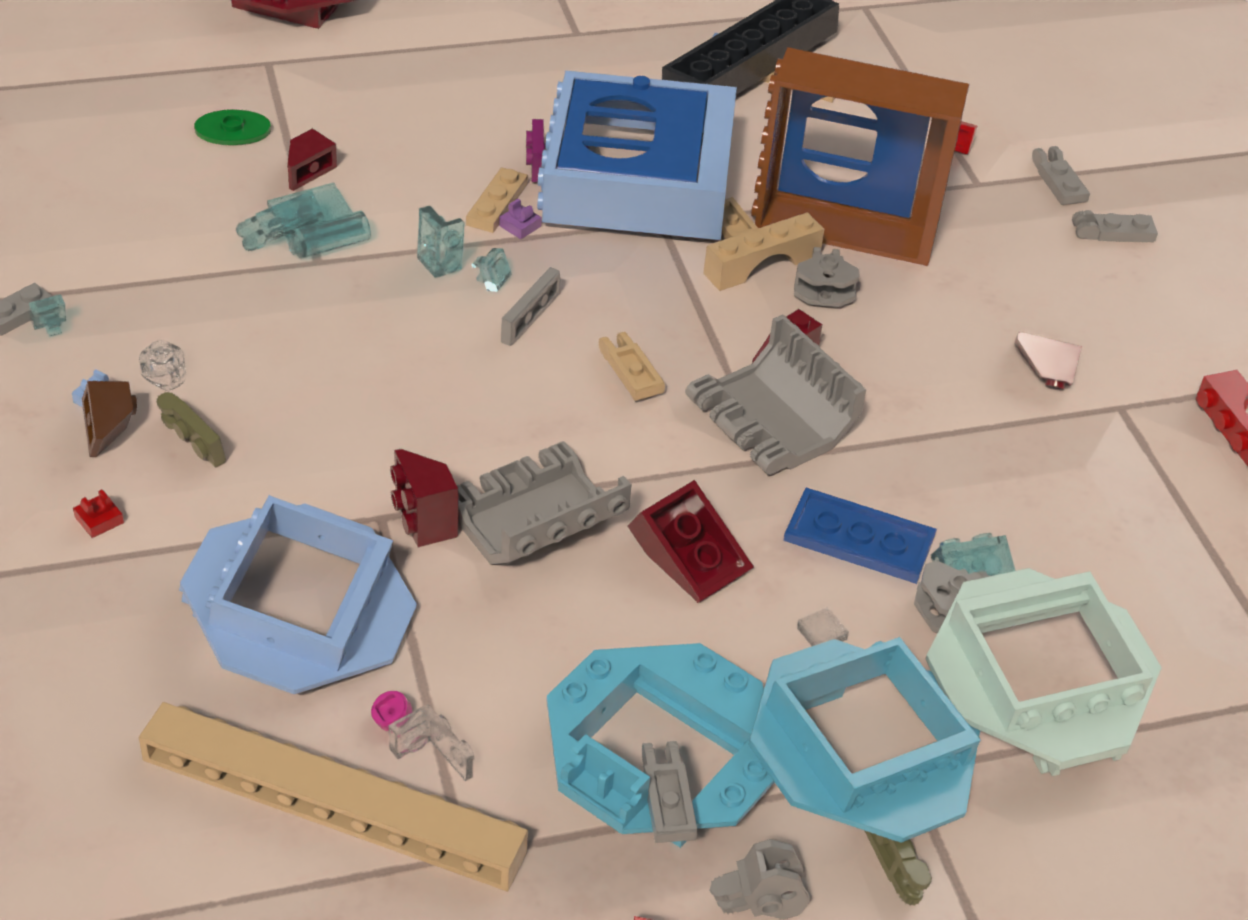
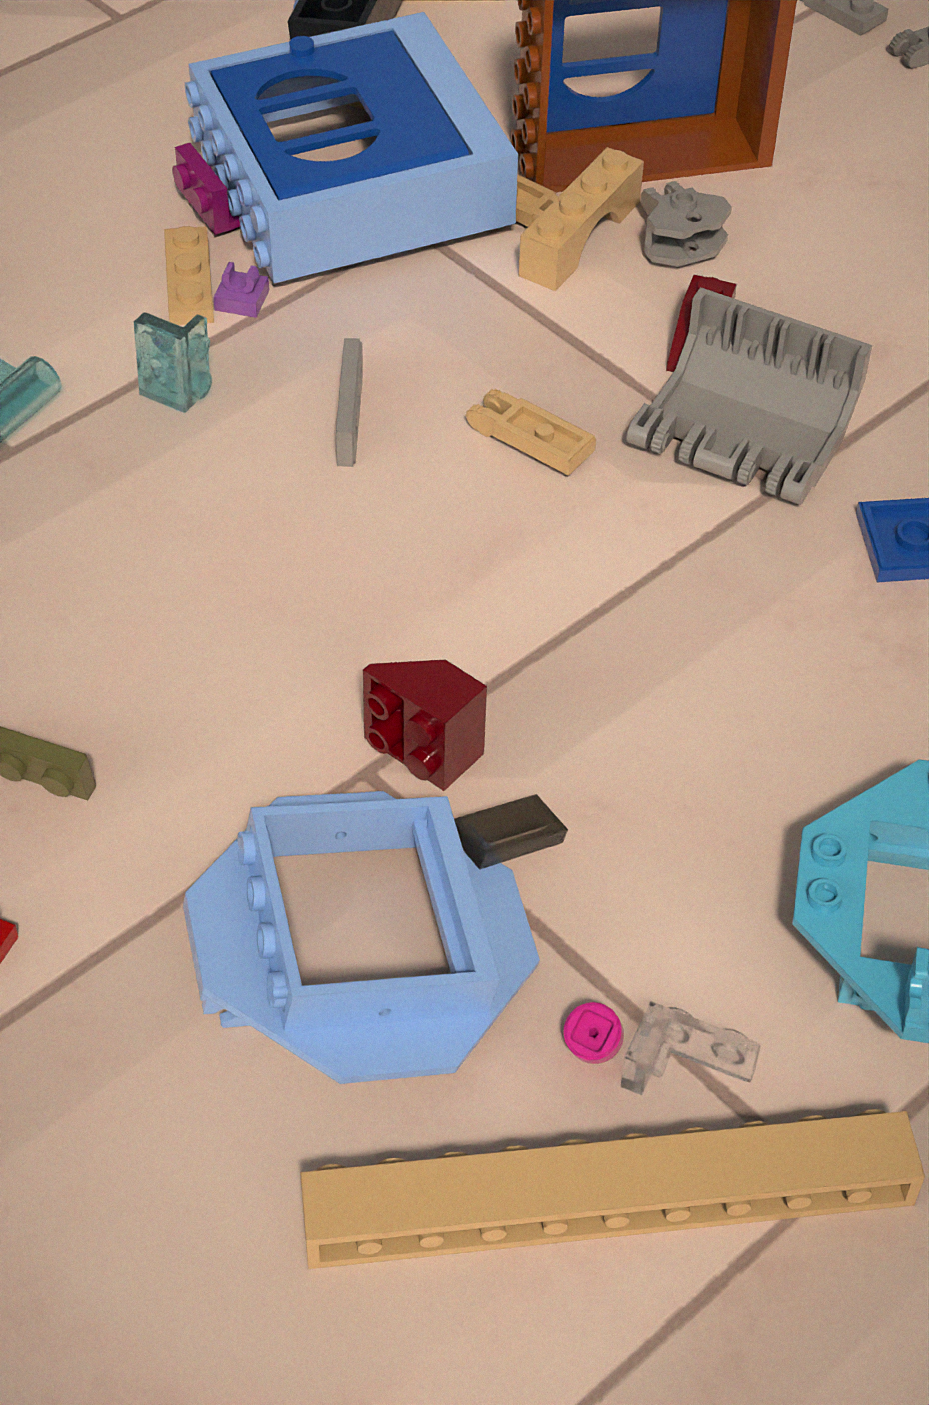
camera: 25 degrees left, 5 degrees up
(430, 581) = (509, 831): none -> clear smoke tile
(493, 269) = (263, 371): clear light blue tile -> none
(534, 505) = (570, 669): light grey hinge -> none
(690, 542) = (785, 632): dark red slope -> none

